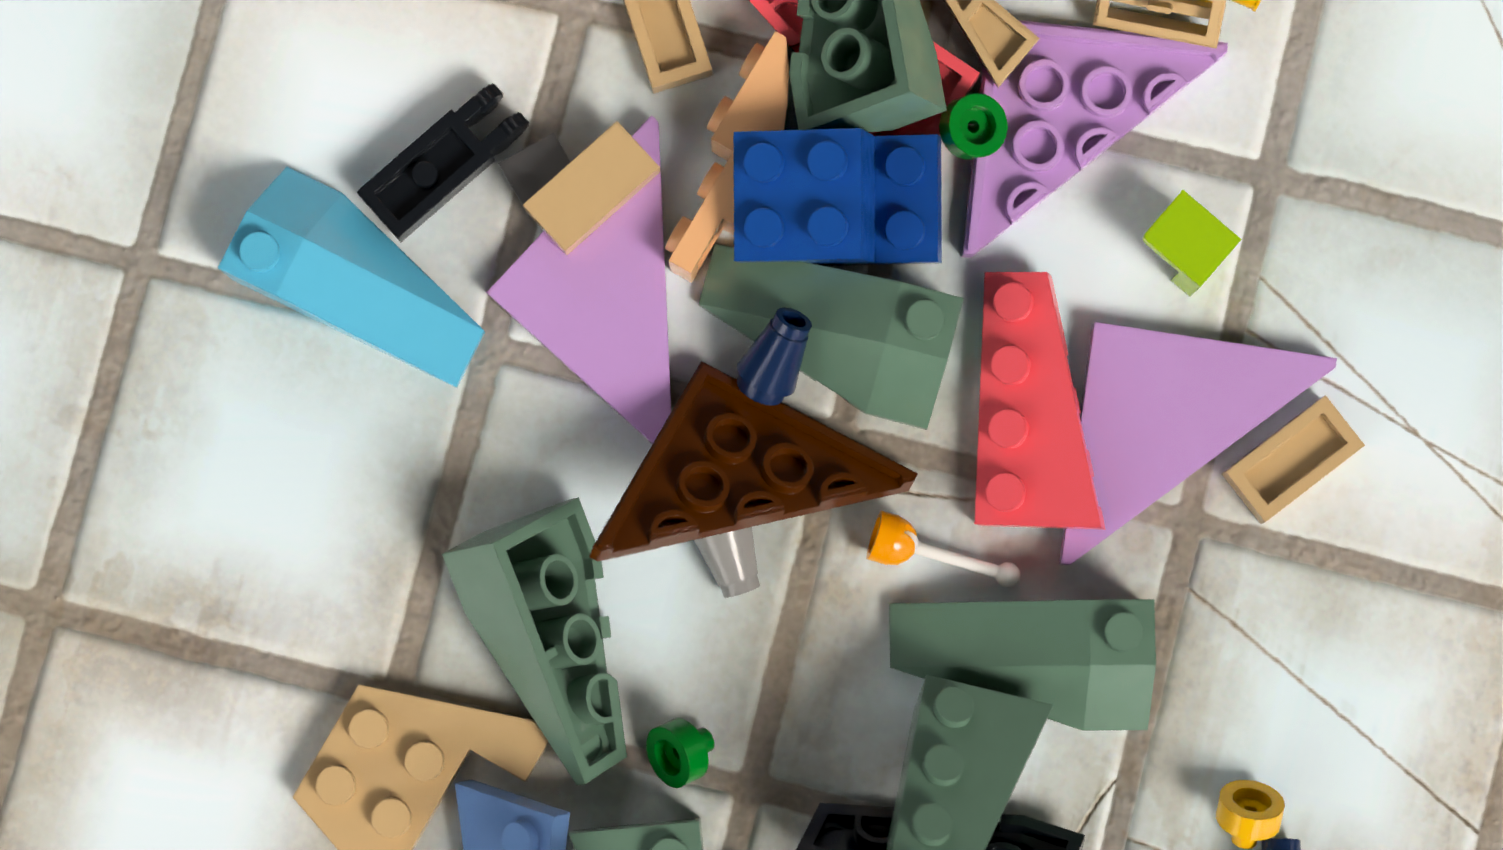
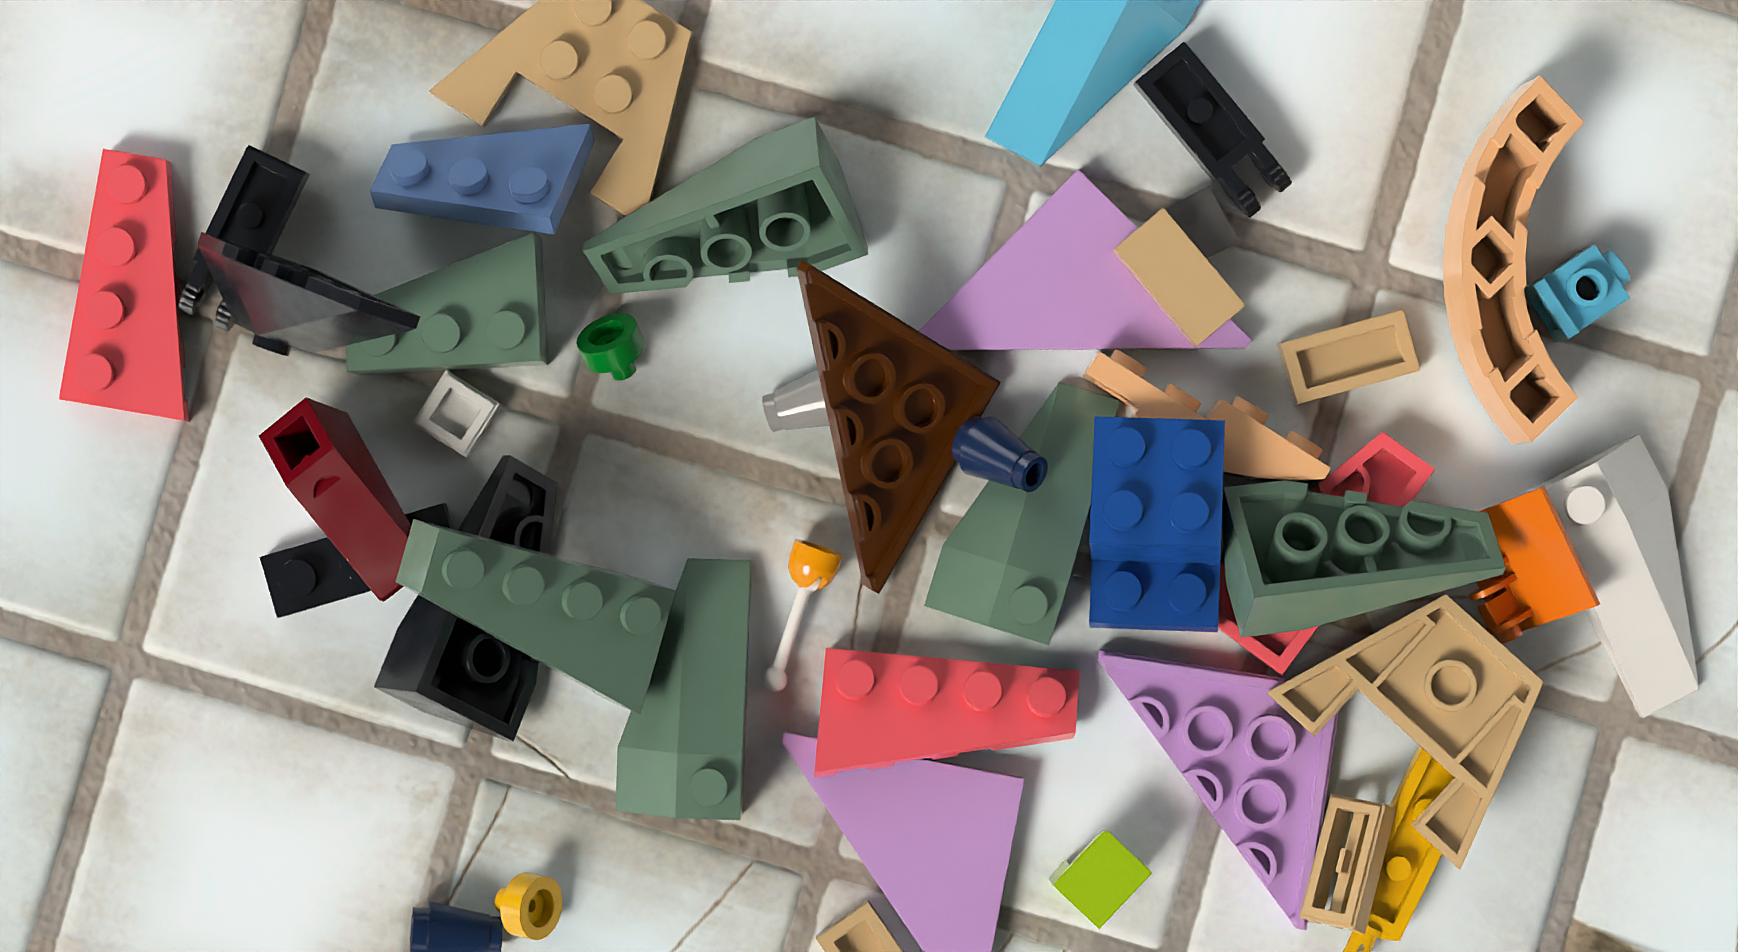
camera: 90 degrees right, 5 degrees up
(973, 126) = (1226, 665): green tile -> none

